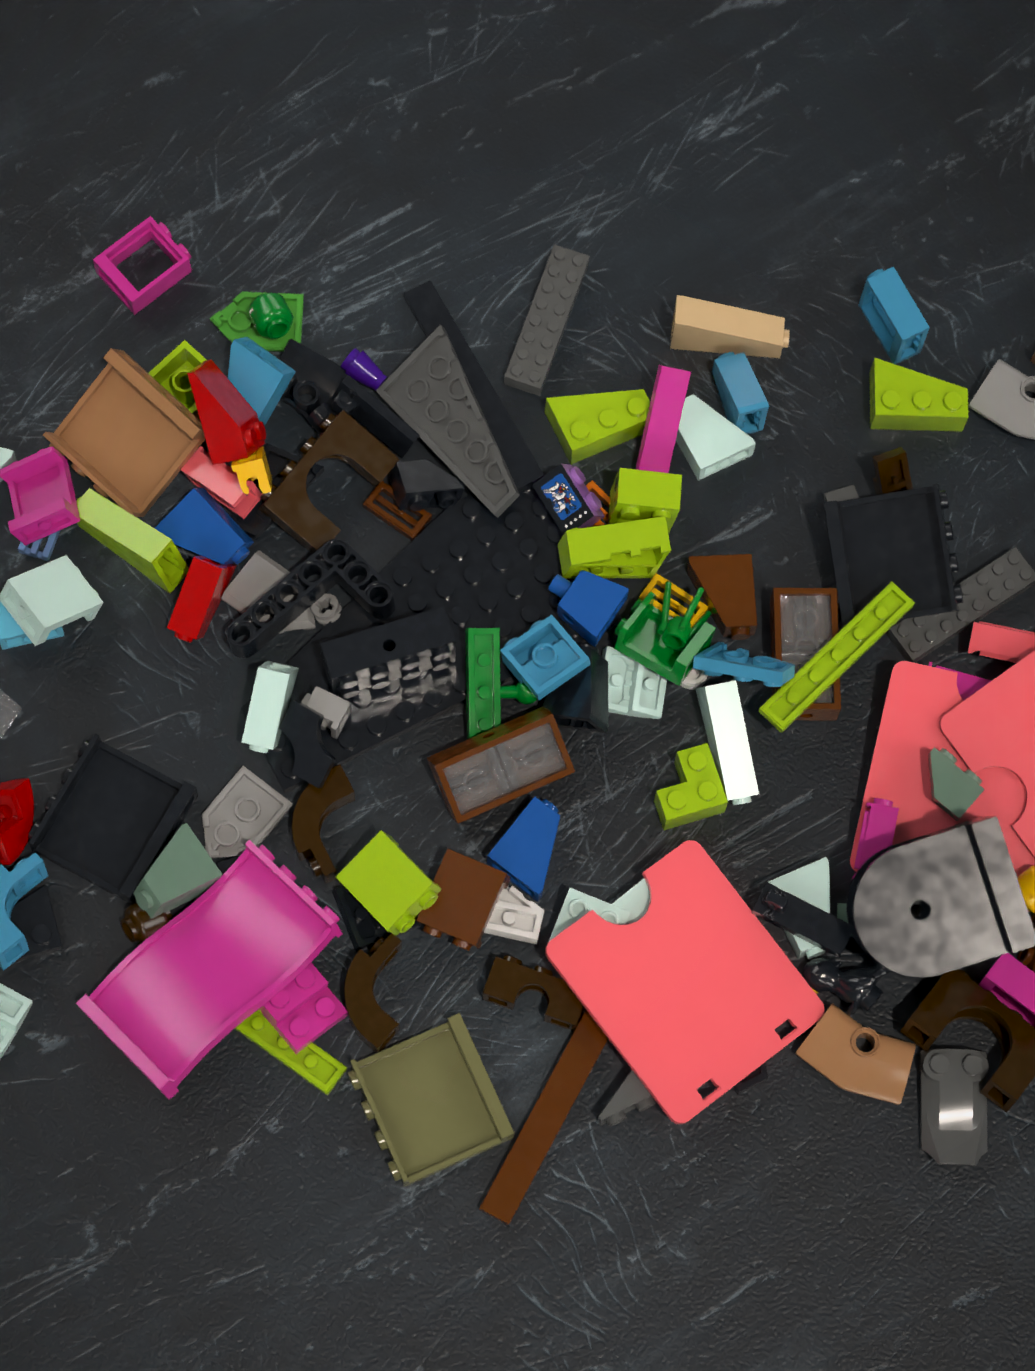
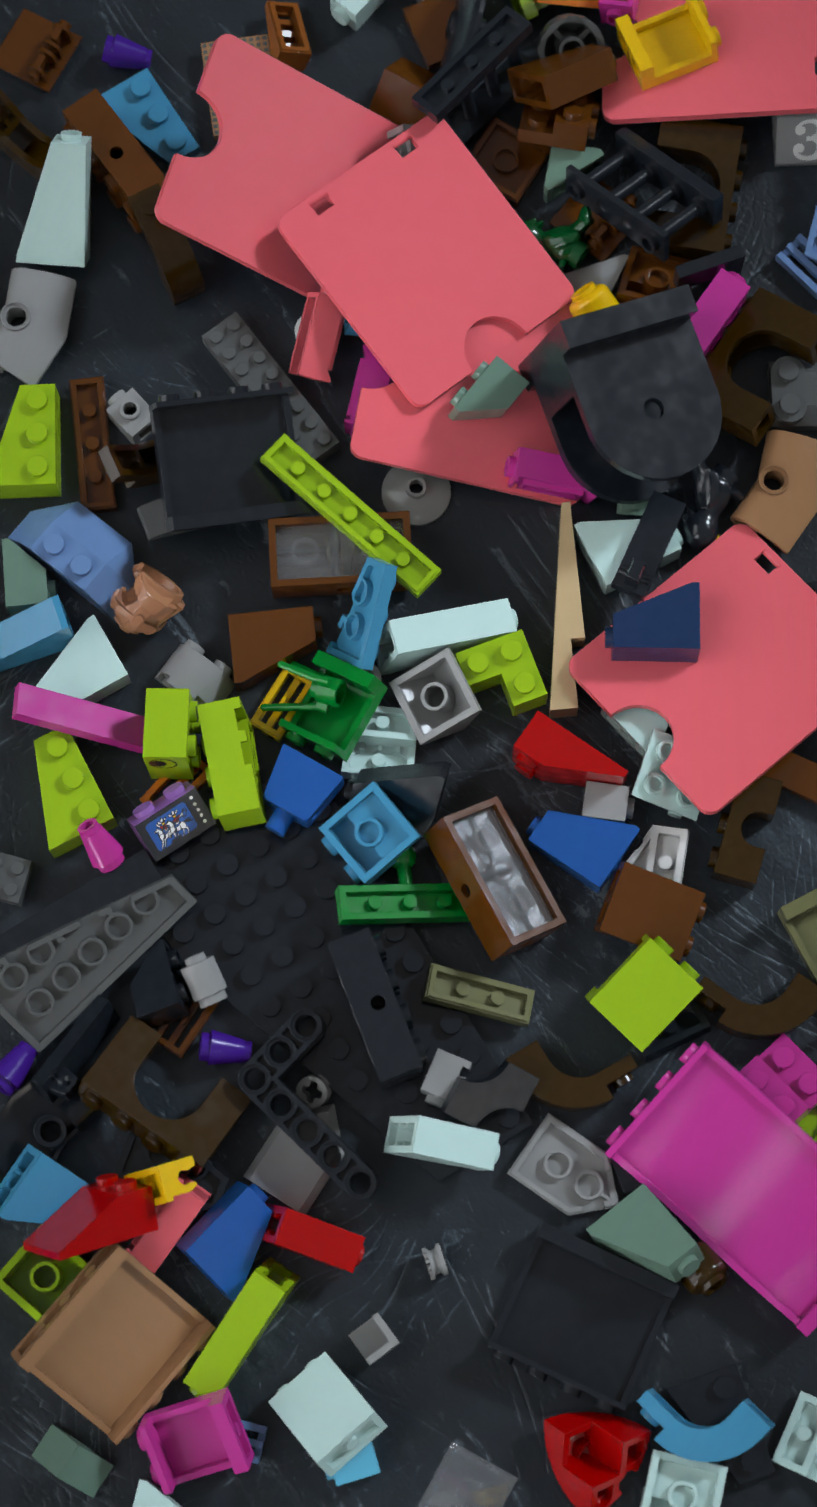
camera: 85 degrees left, 5 degrees up
(35, 405) = (72, 1461): none -> sand green slope
(111, 648) = (374, 1339): none -> light grey panel
(172, 700) = (436, 1260): none -> light grey bush
(368, 536) = (222, 1048): none -> dark purple cone
(399, 749) = (478, 995): none -> olive tile
(426, 519) = (204, 979): none -> light grey brick
(547, 439) = (100, 846): none -> dark pink cone
(564, 870) = (607, 802): none -> light grey brick
(615, 819) = (562, 757): none -> red slope
(668, 726) = (436, 698): none -> light grey slope
(697, 529) = (193, 671): none -> light grey cylinder
(722, 919) = (658, 628): none -> dark blue slope
(744, 850) = (567, 621): none -> tan slope
(766, 491) = (148, 602): none -> nougat helmet
(791, 392) = (24, 579): none -> sand green slope
(812, 441) = (78, 551): none -> medium blue wedge
(850, 731) = (422, 506): none -> light grey dish
(922, 454) = (90, 436): none -> reddish brown tile
(952, 477) = (135, 426): none -> light grey brick

